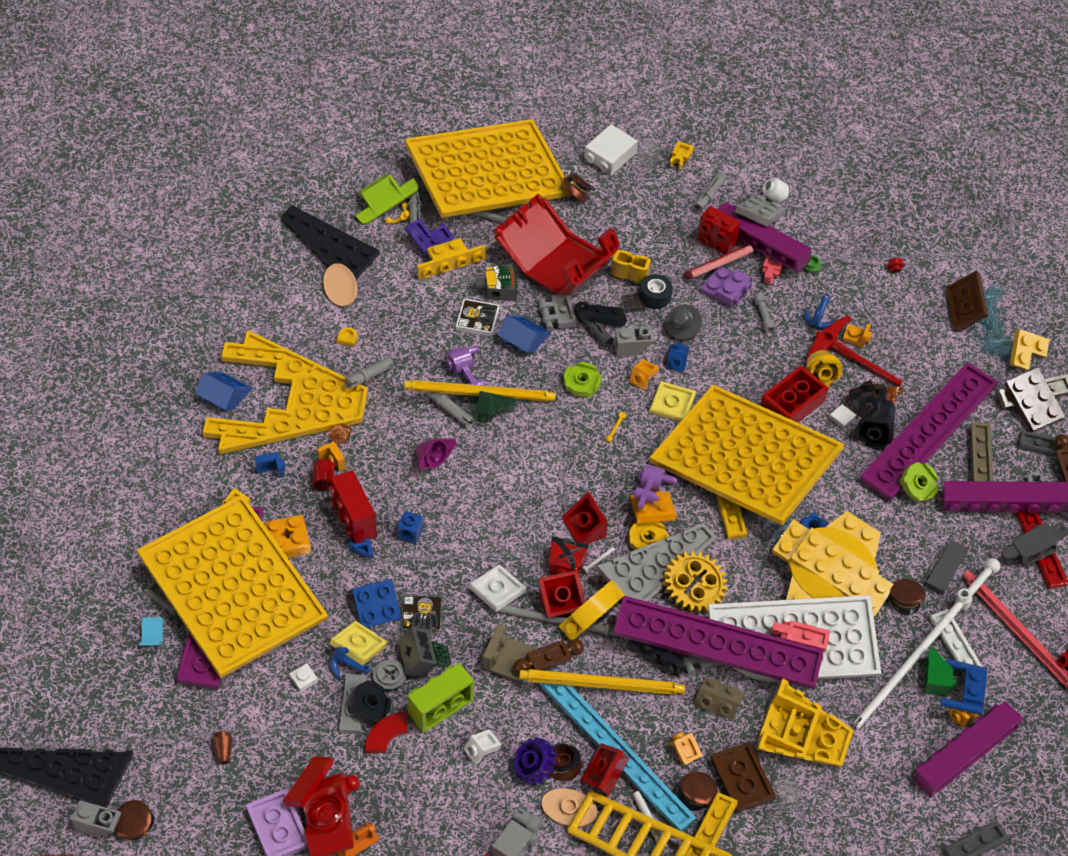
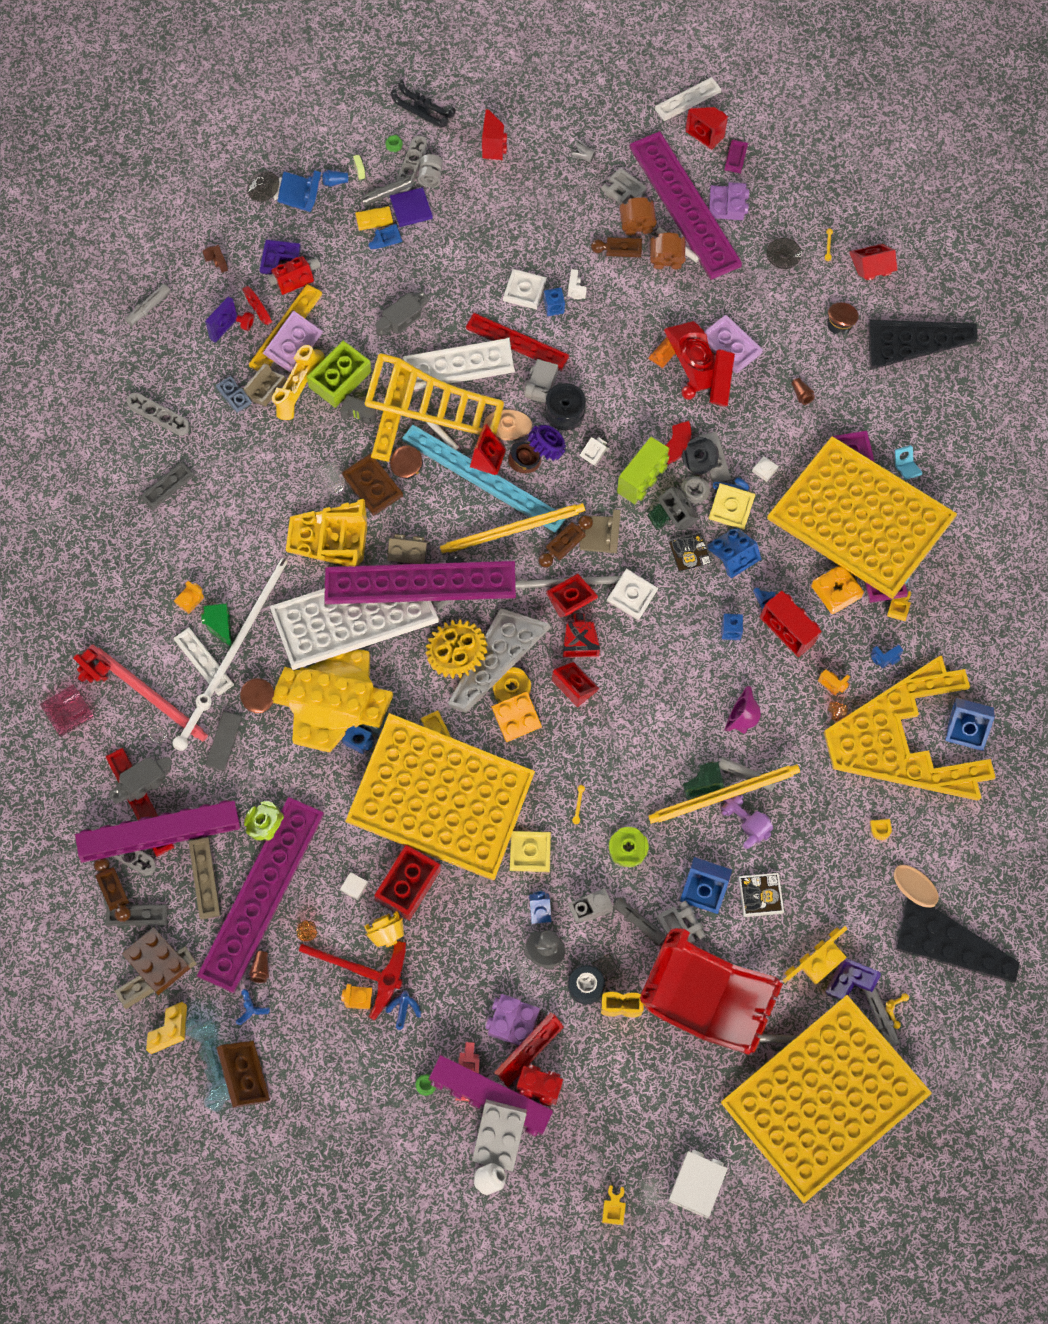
camera: 165 degrees right, 15 degrees up
(94, 819) = (871, 305): light grey slope -> none
(322, 474) = (833, 658): red piece -> none
(364, 375) = (840, 782): light grey pin -> none
(382, 196) = (925, 1021): lime plate -> none
(499, 283) = (754, 942): torso -> none
(499, 796) = (565, 406): none -> black wheel
(577, 187) = (716, 1105): copper piece -> none
(585, 569) = (560, 639): white piece -> none
(591, 610) = (535, 587): yellow arch -> none
(601, 313) = (632, 932): black hinge -> none
(643, 373) = (568, 874): light orange bracket -> none
(651, 480) = (525, 744): medium lavender piece -> none
(685, 747) = (427, 495): light orange bracket -> none
(706, 196) = (571, 1132): light grey pin -> none
(768, 324) = (471, 1011): light grey bar -> none
(802, 634) = (346, 609): coral hinge -> none
(867, 394) = (339, 920): black plate -> none
(877, 426) = (314, 880): black cone -> none
(895, 265) = (331, 1112): red plate -> none
(940, 374) = (260, 970): none -> copper cone
(955, 345) = (250, 1008): none -> blue piece
(967, 748) = (183, 561): magenta brick -> none
(973, 688) = (185, 611): blue plate -> none

